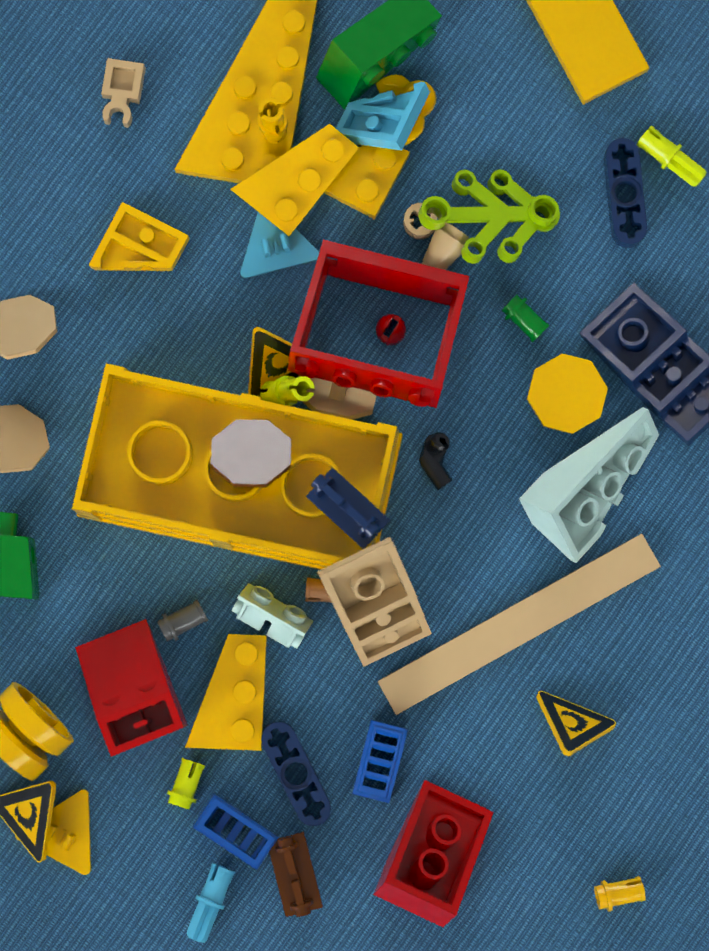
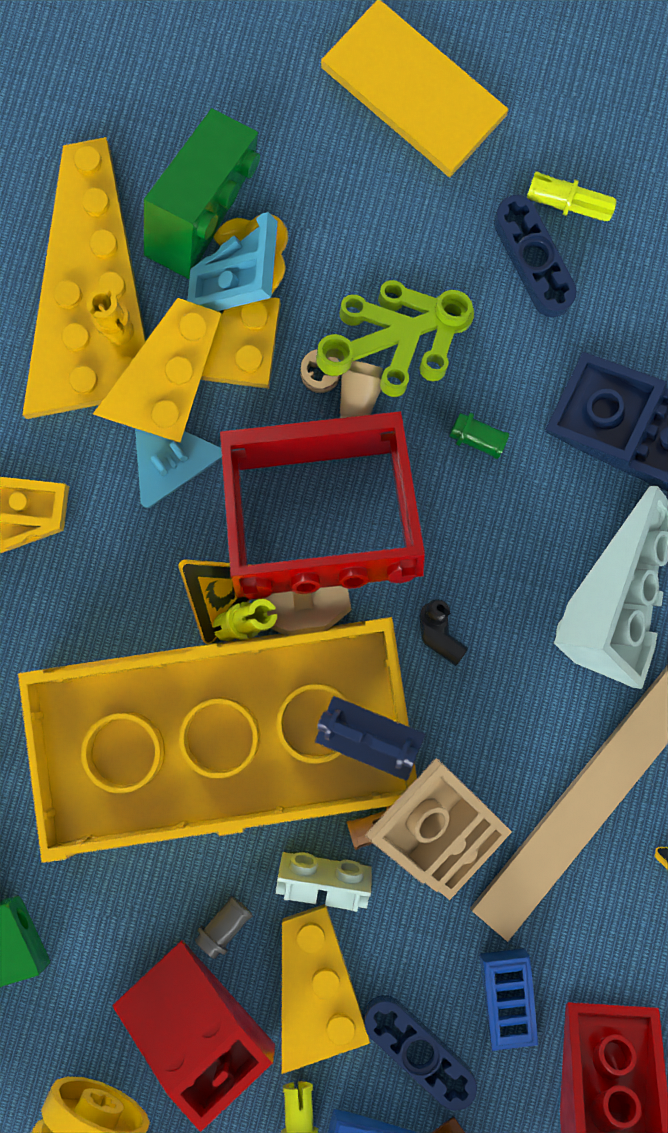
camera: 25 degrees left, 0 degrees up
(251, 453) = (230, 719): piece -> none
(397, 334) = (323, 502): red hinge -> none
(567, 393) = (559, 502): yellow piece -> none

